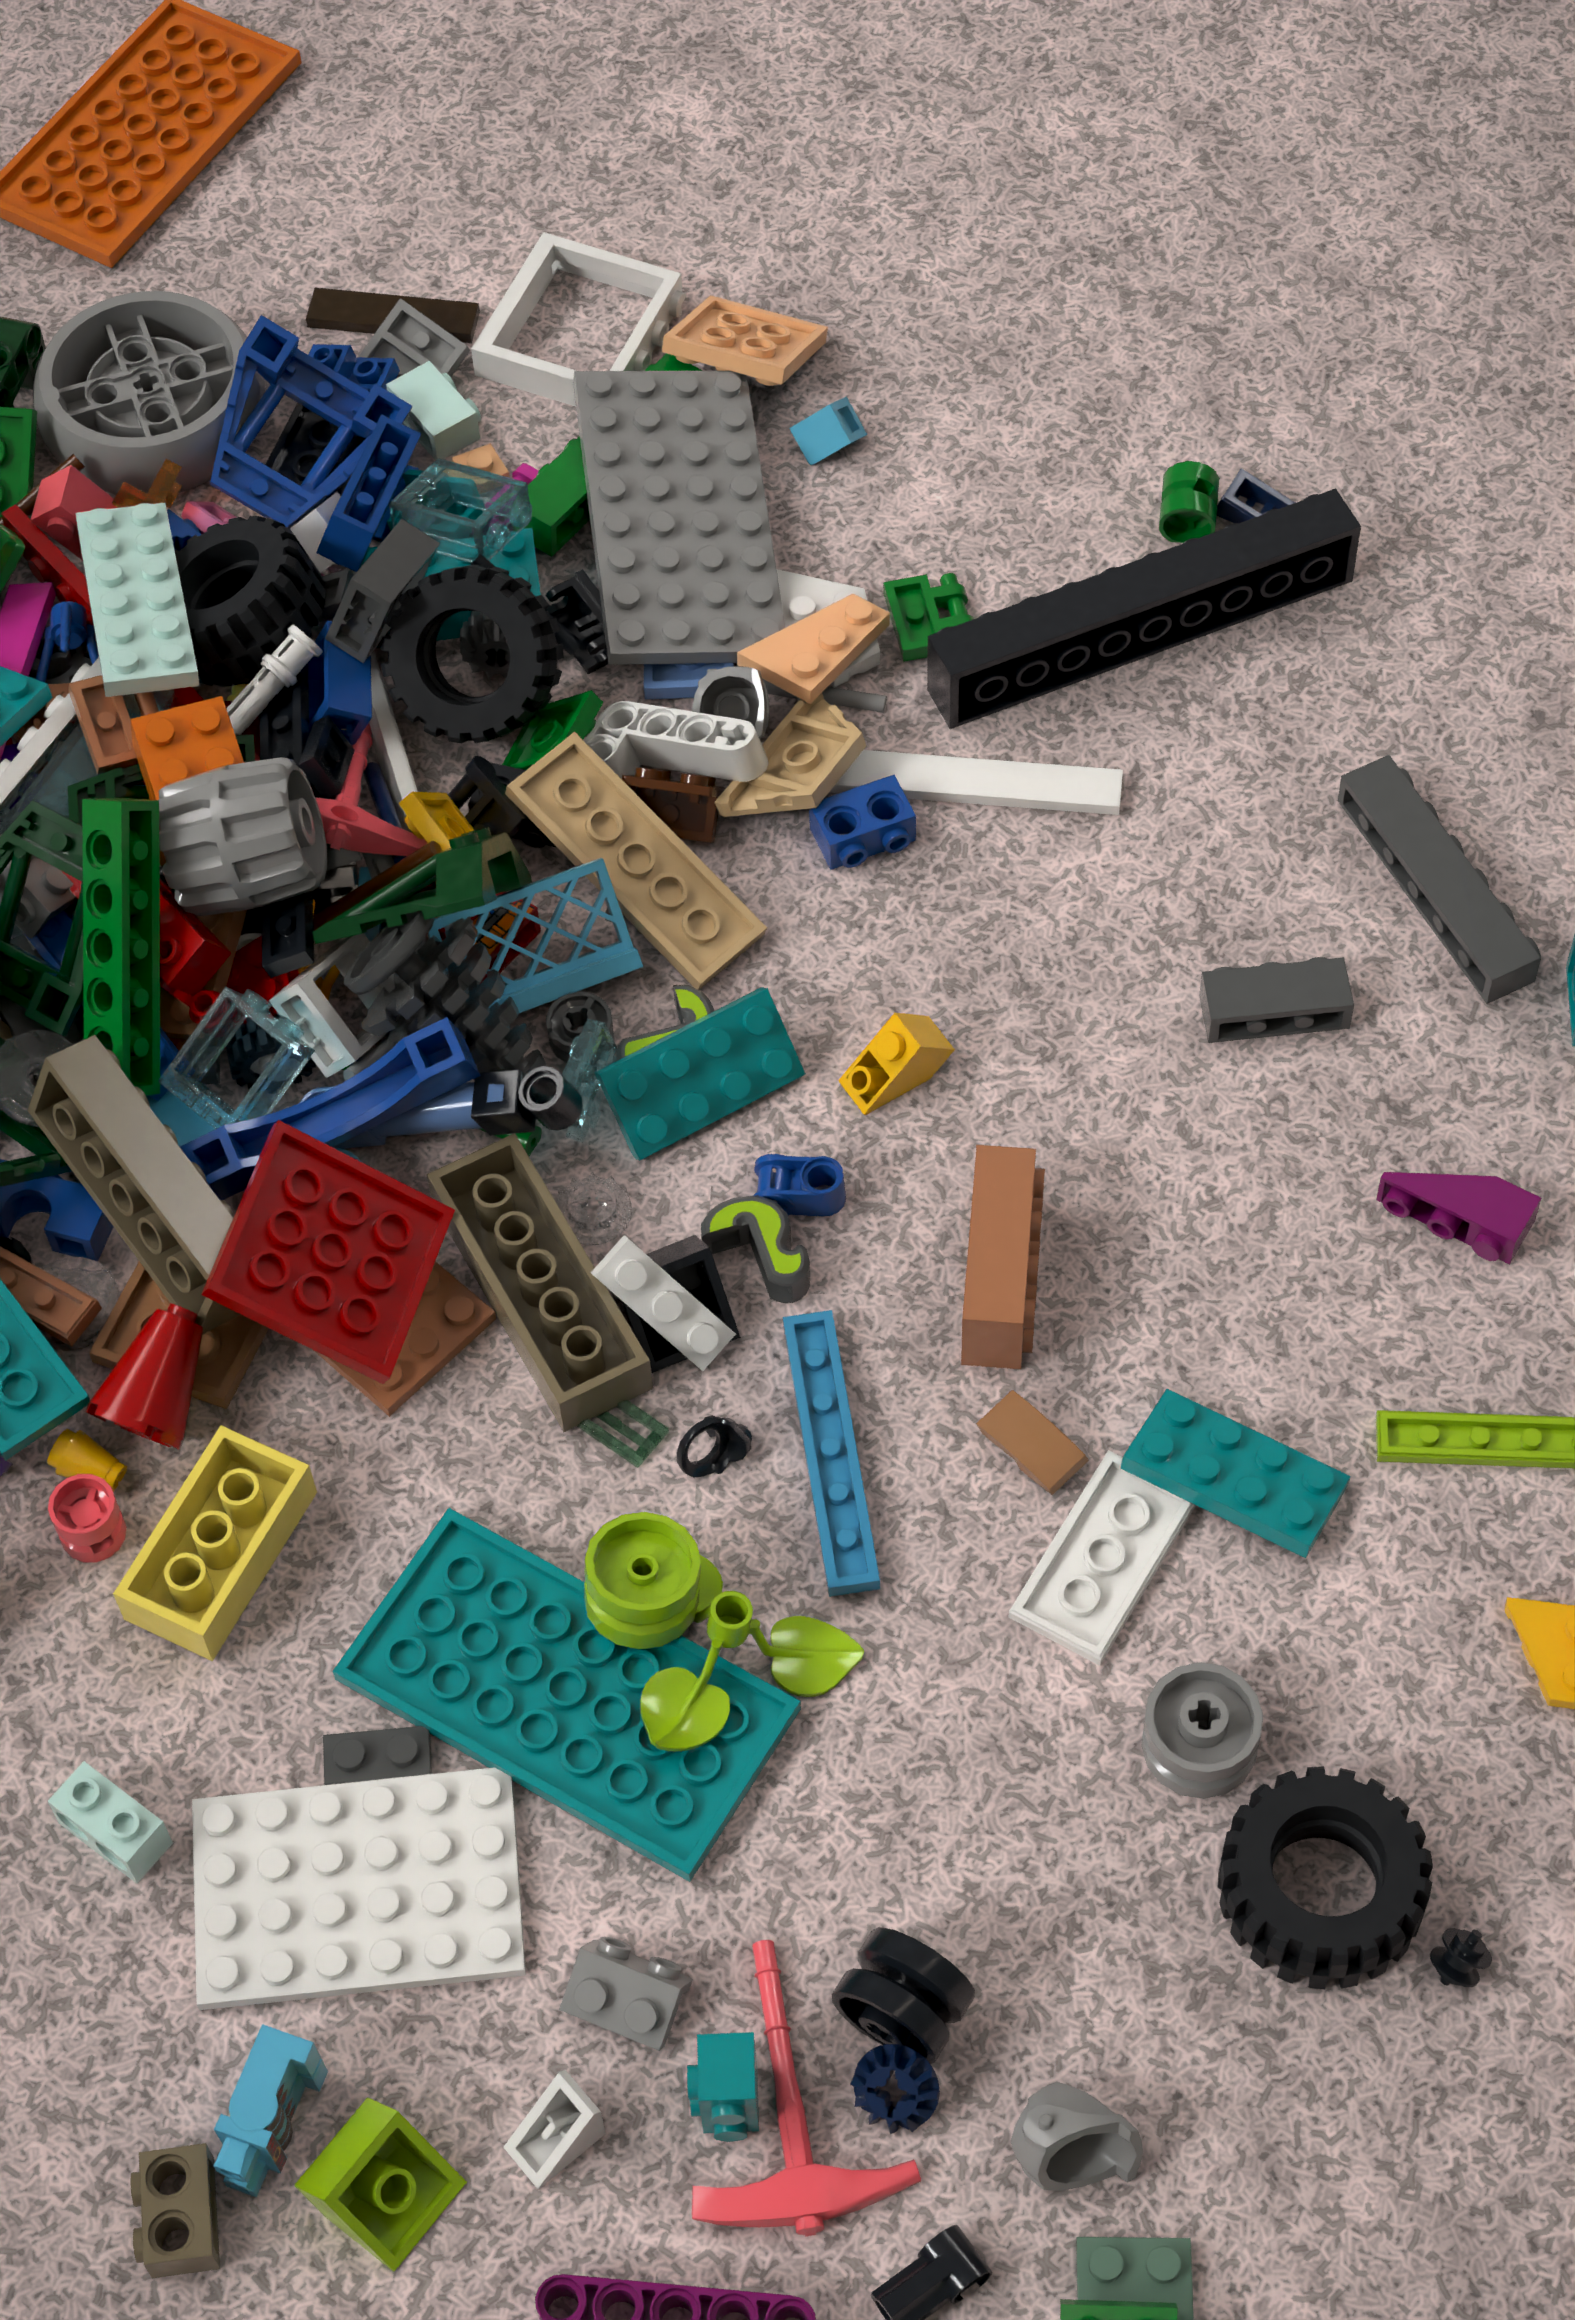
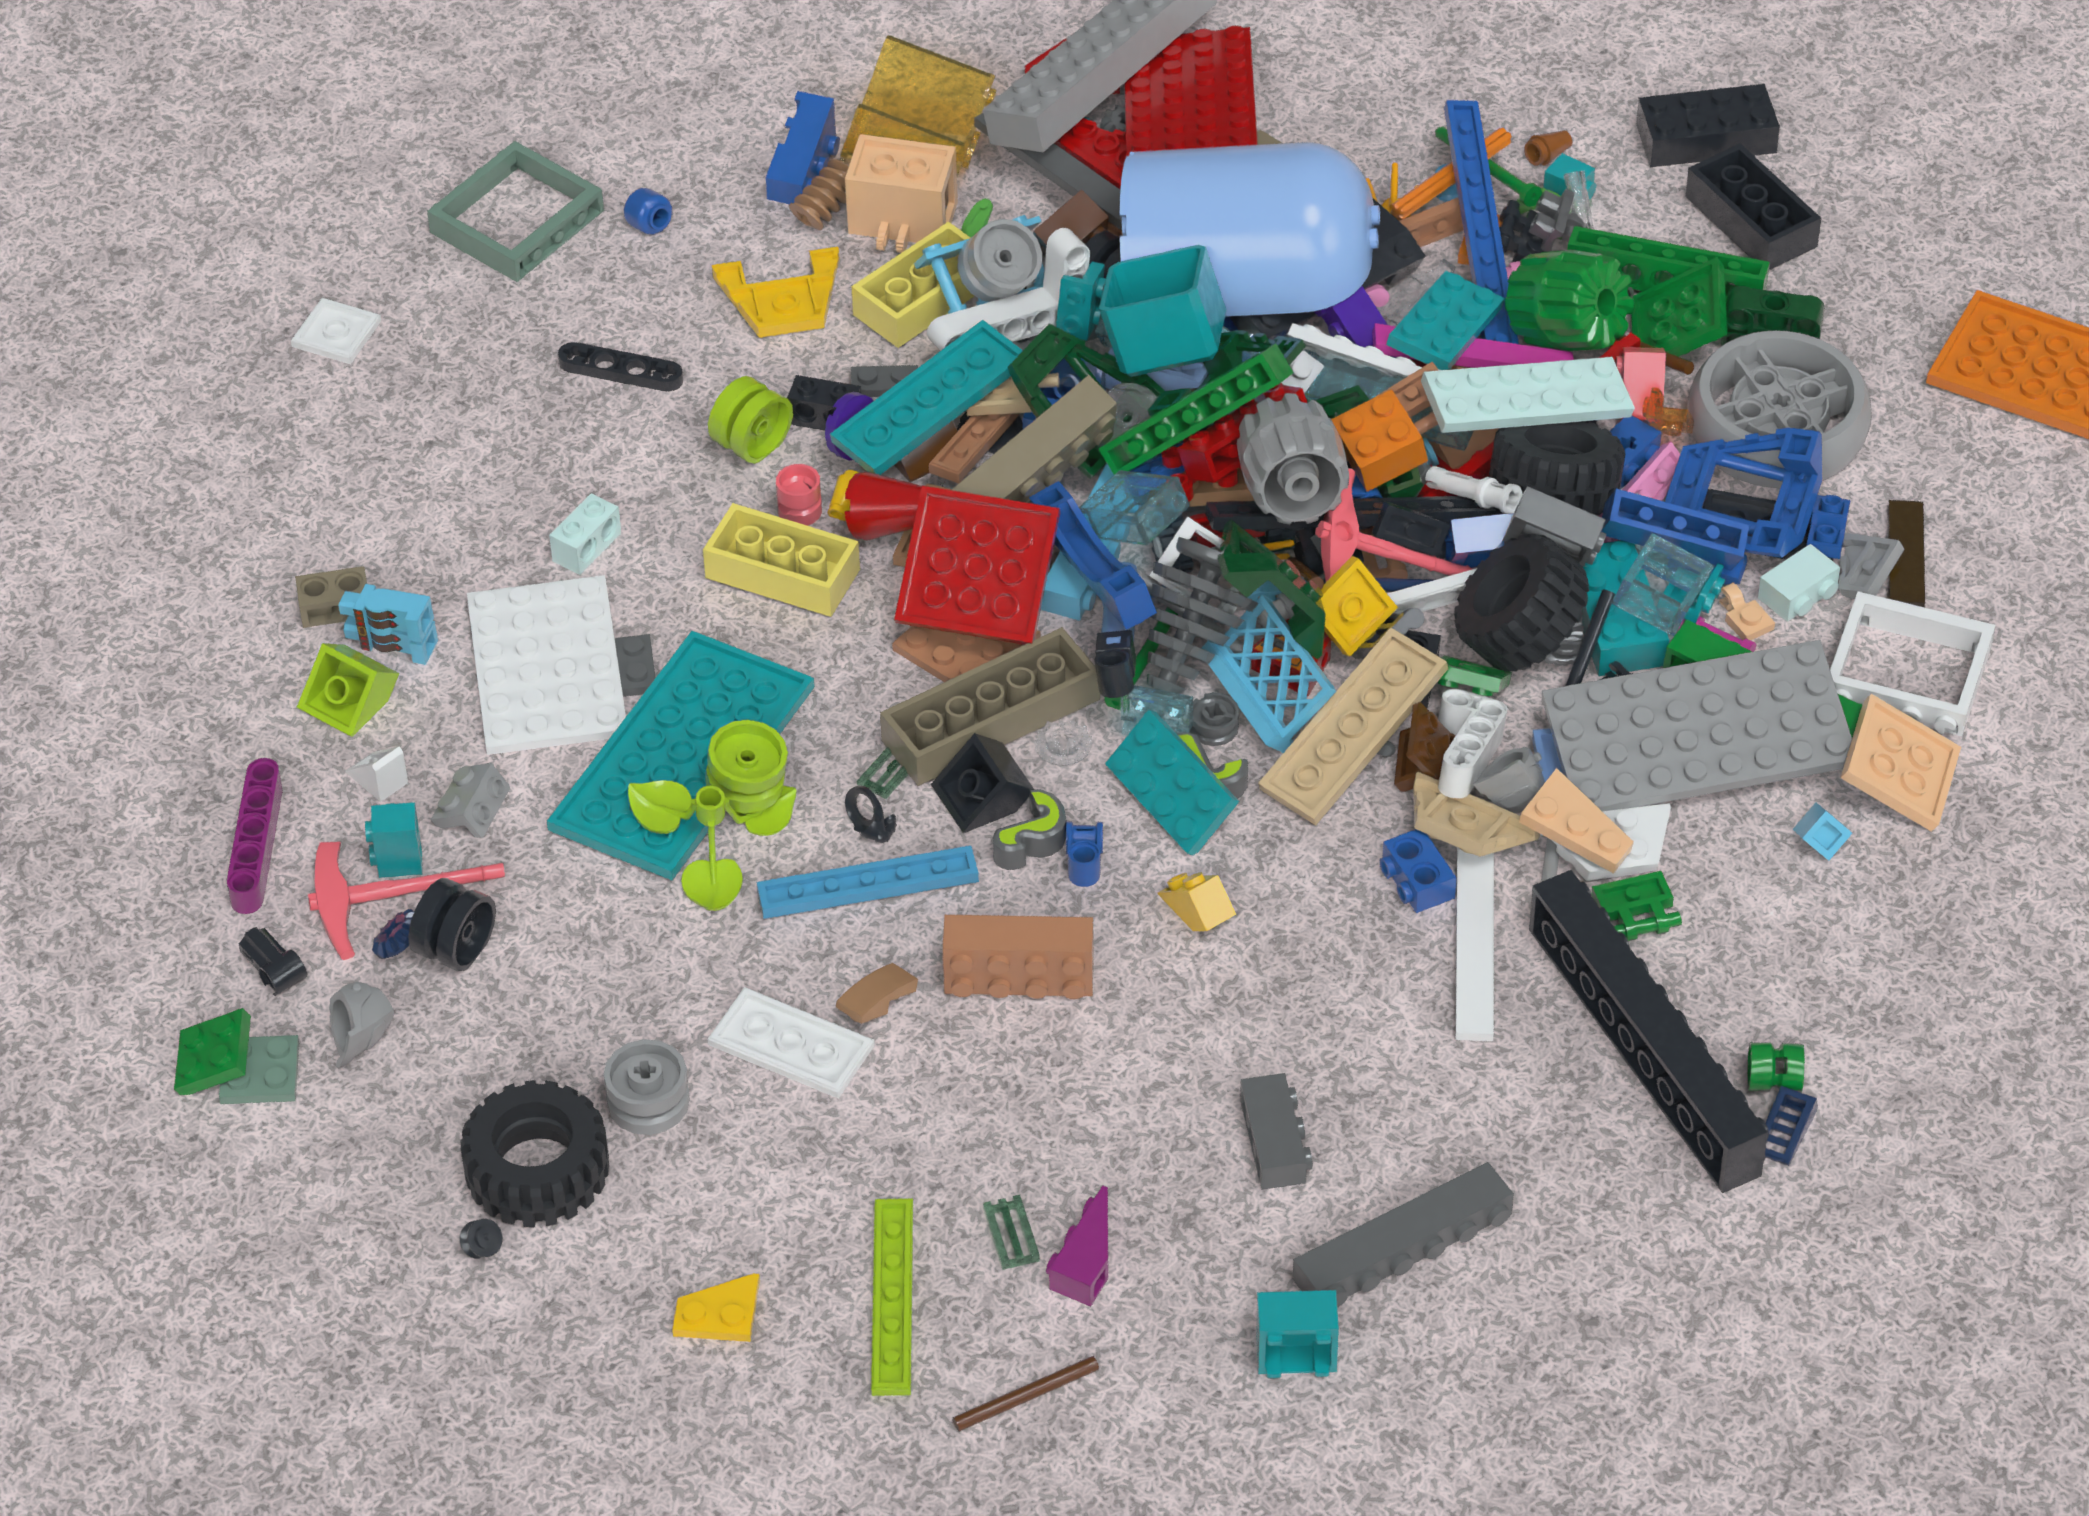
camera: 85 degrees right, 10 degrees down
(663, 1303) = (966, 766): white plate -> none
(1235, 1473) = (856, 1112): teal plate -> none
(1465, 1291) = (1004, 1207): none -> clear green tile

